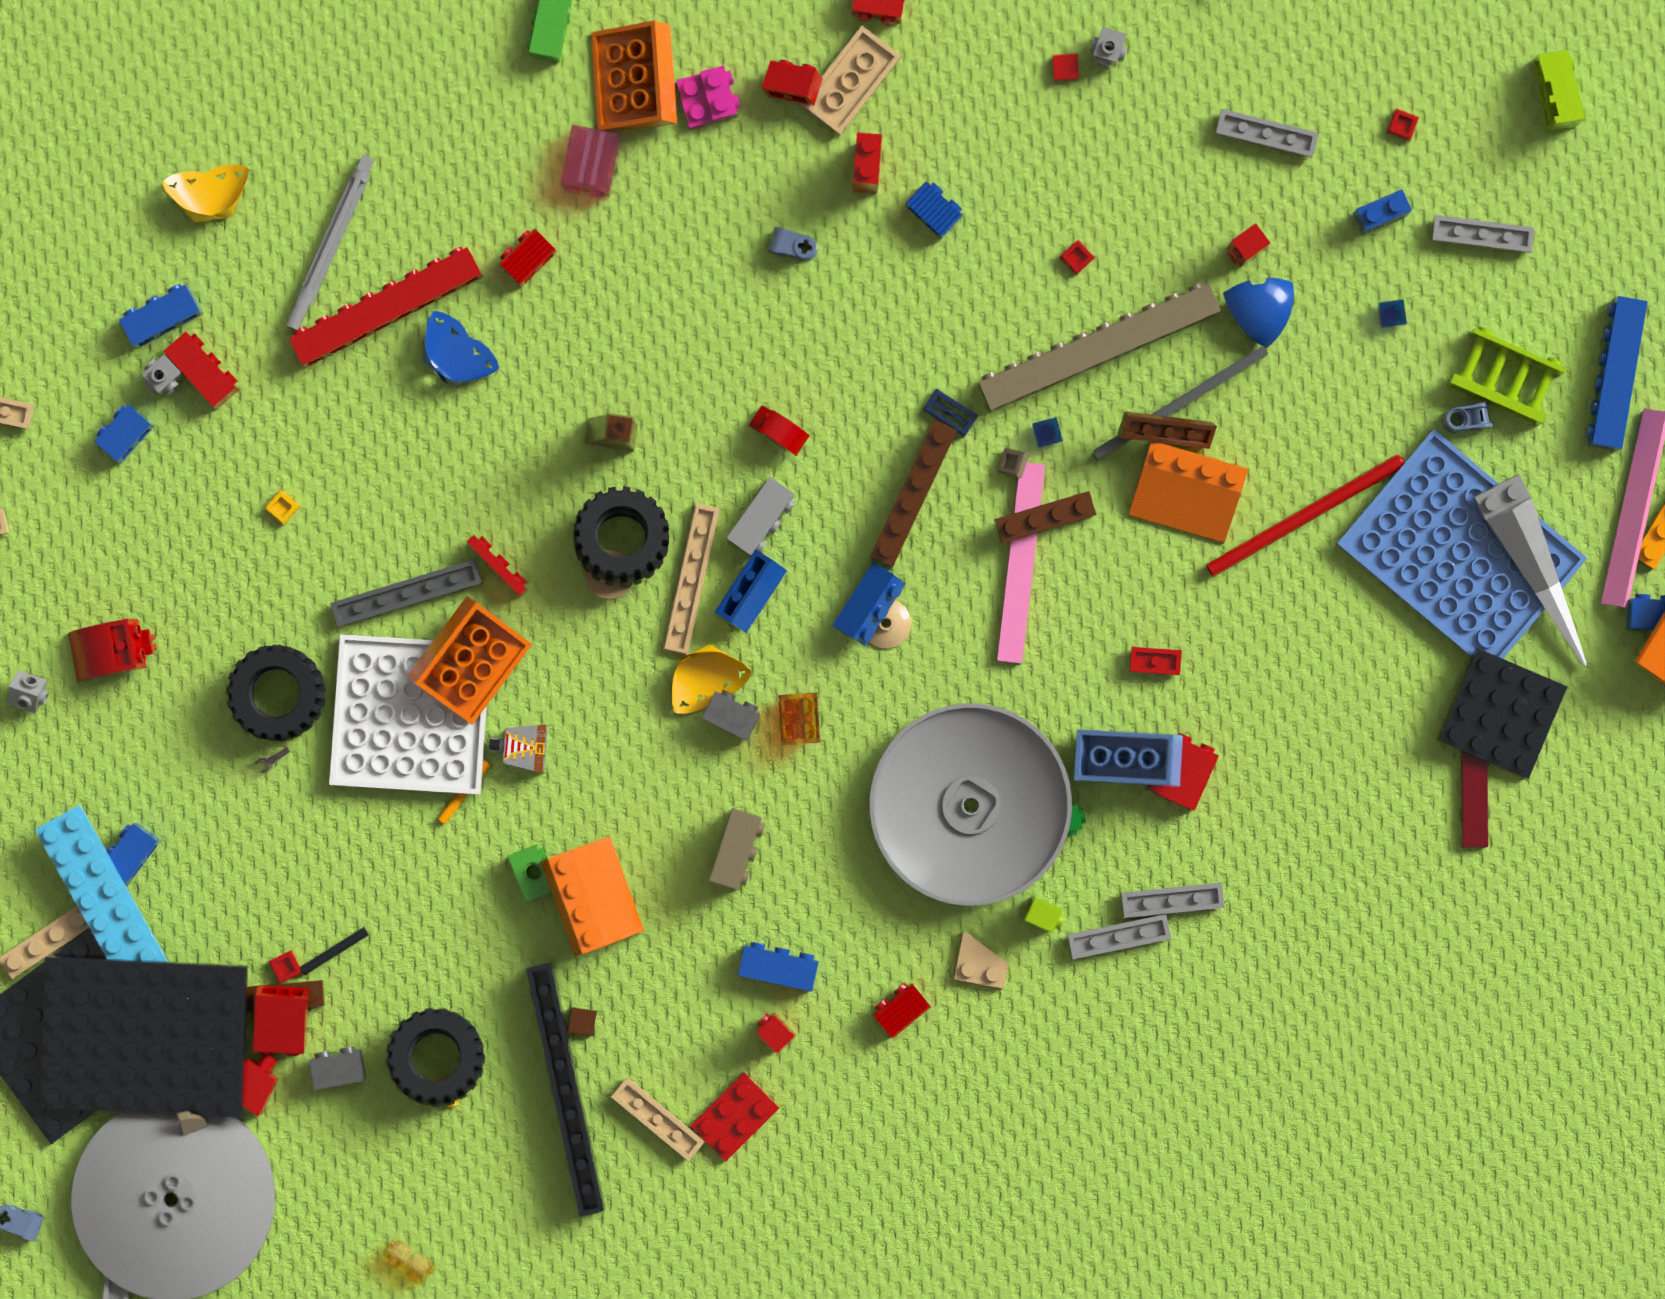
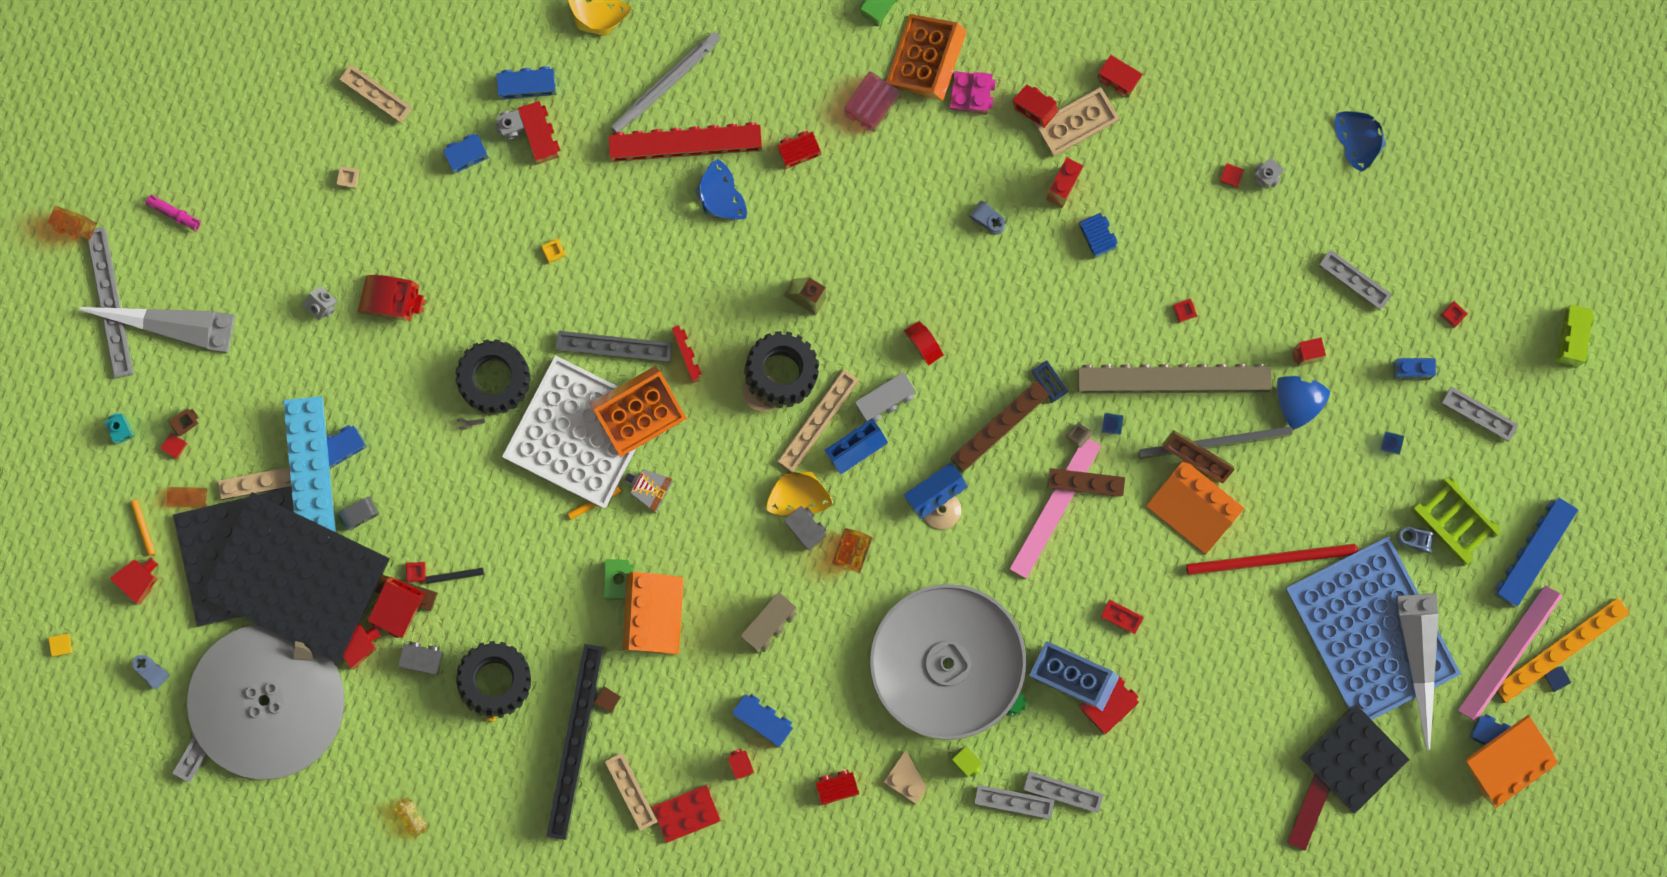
camera: 25 degrees right, 5 degrees down
(185, 926) = (358, 513): none -> dark grey beam

